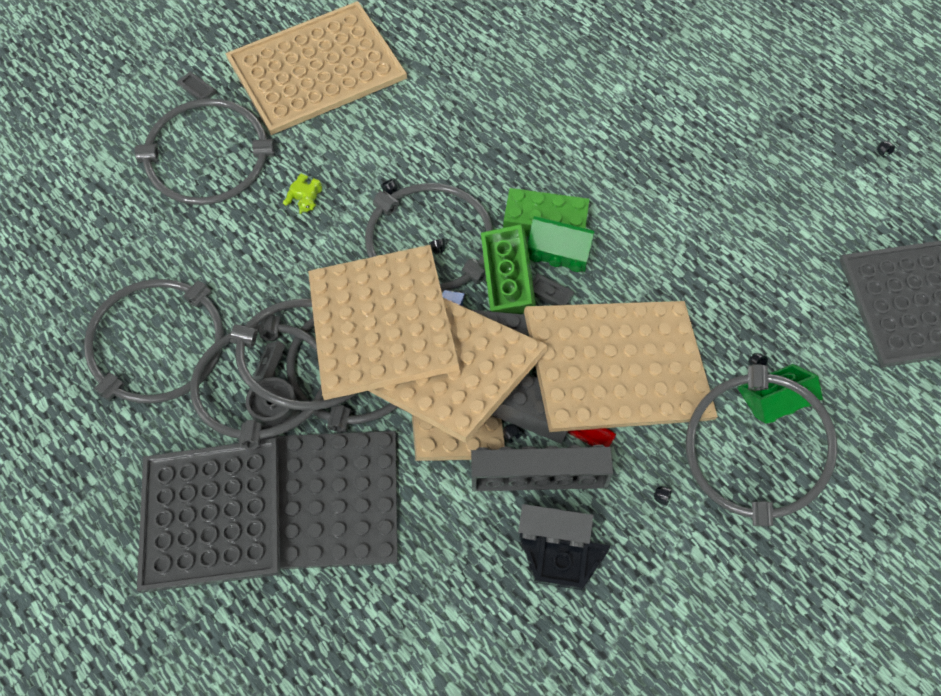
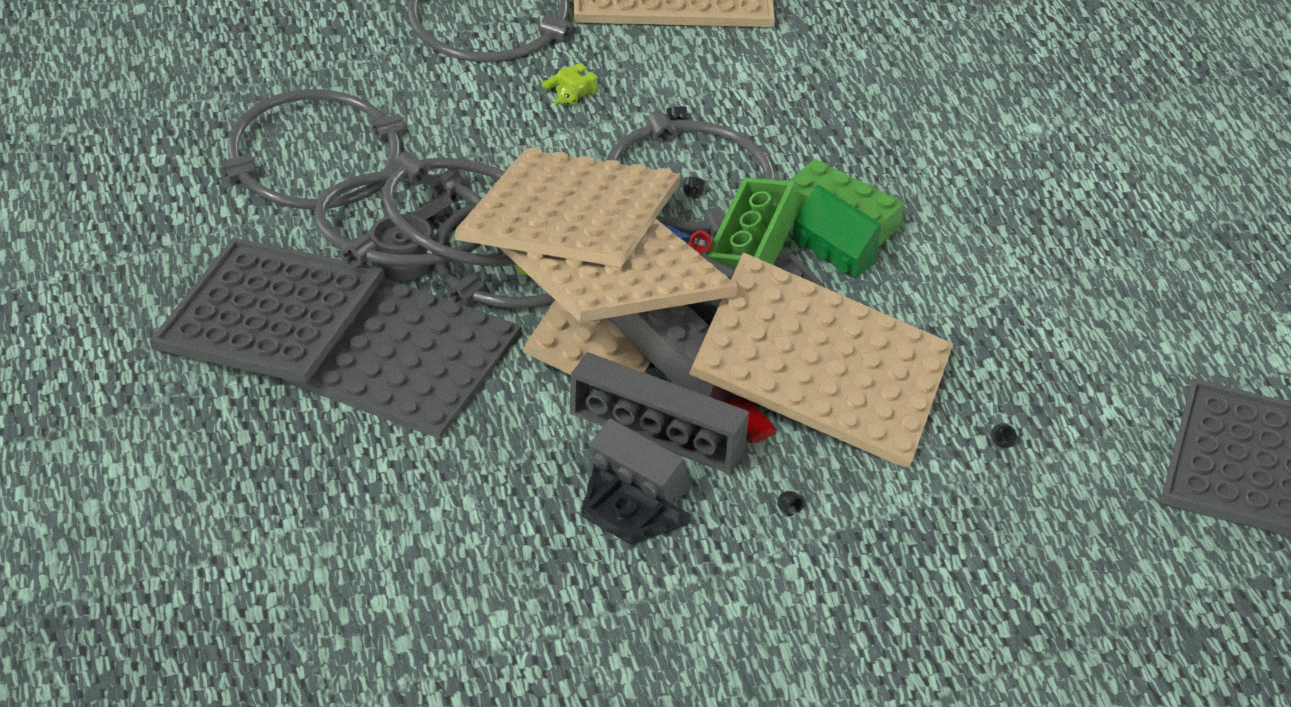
camera: 25 degrees right, 20 degrees down
(480, 301) = (703, 242): none -> red hinge
(762, 512) = (899, 559): dark grey piece -> none
(778, 400) = (1007, 473): green slope -> none

